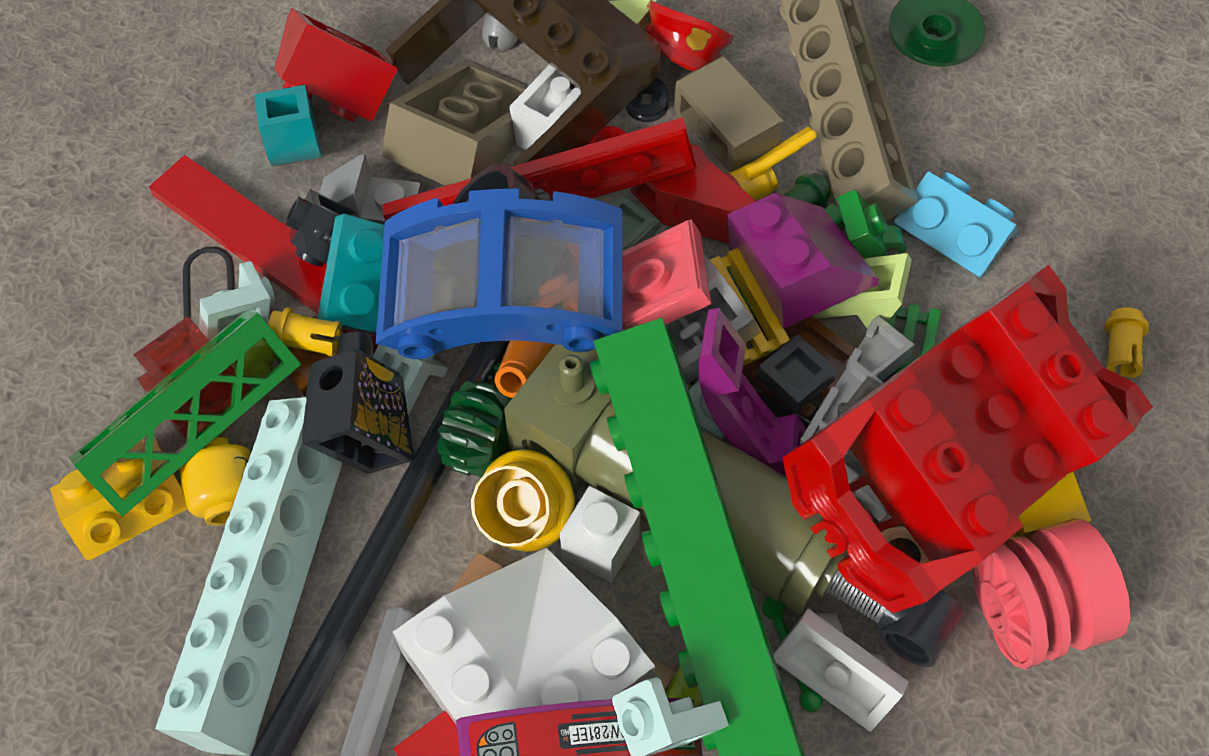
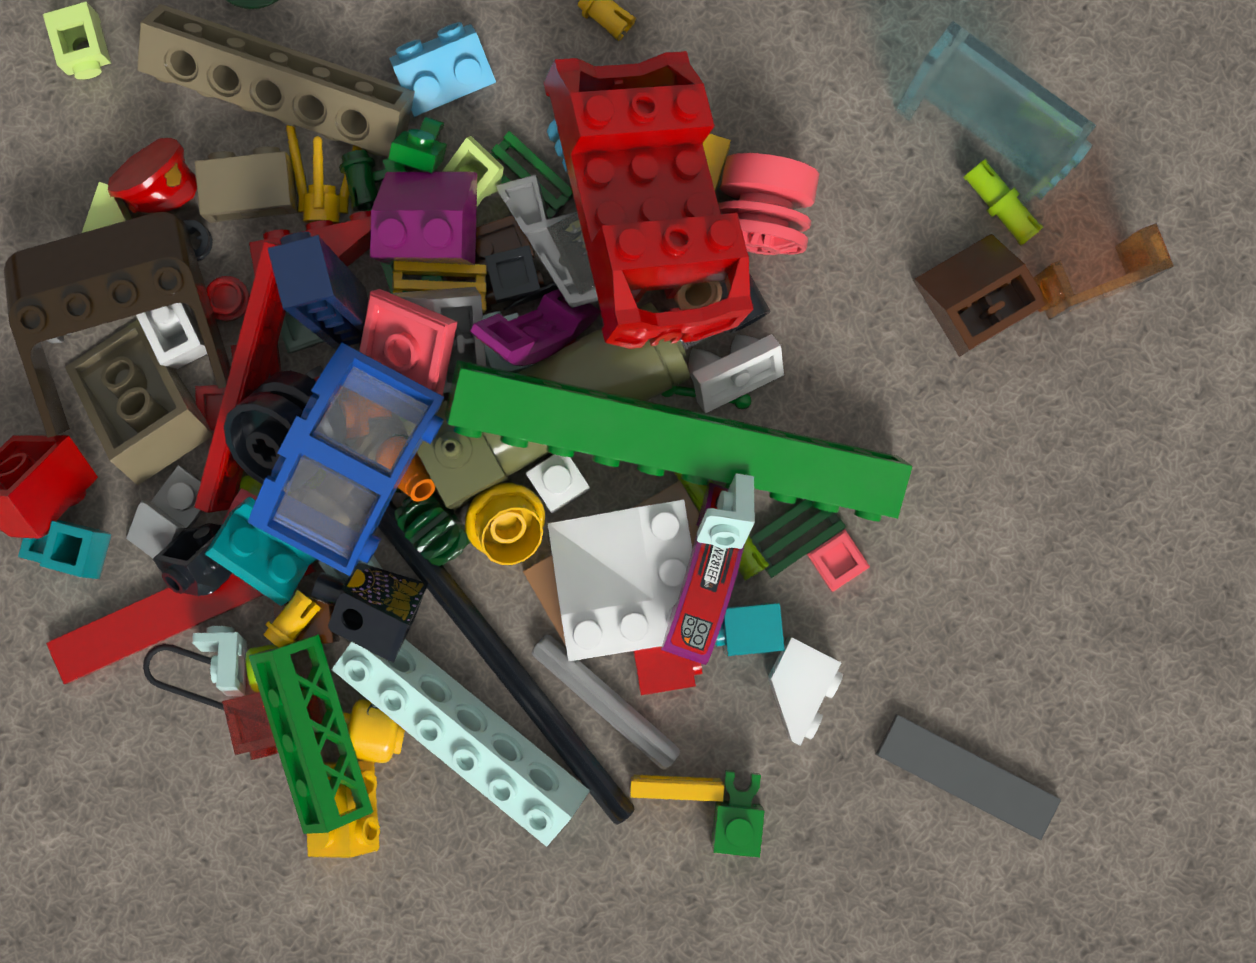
camera: 60 degrees left, 25 degrees up
(662, 136) = (319, 289): none -> dark blue brick

